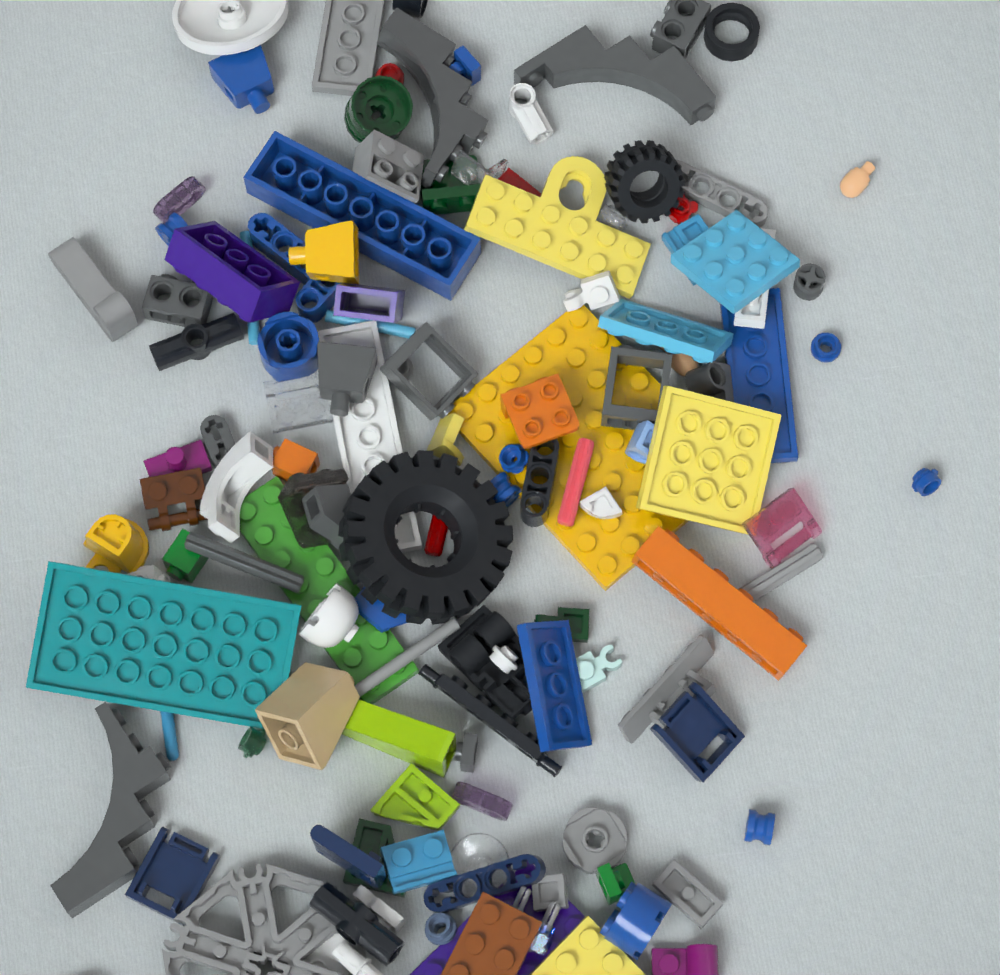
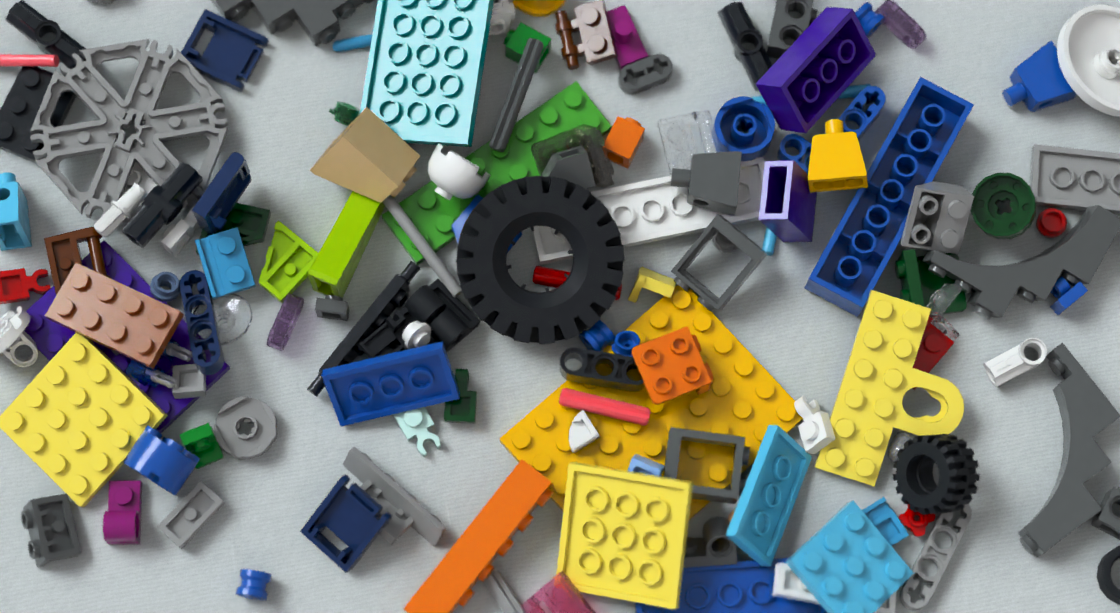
camera: 85 degrees right, 5 degrees up
(231, 482) = (596, 80): white arch -> none

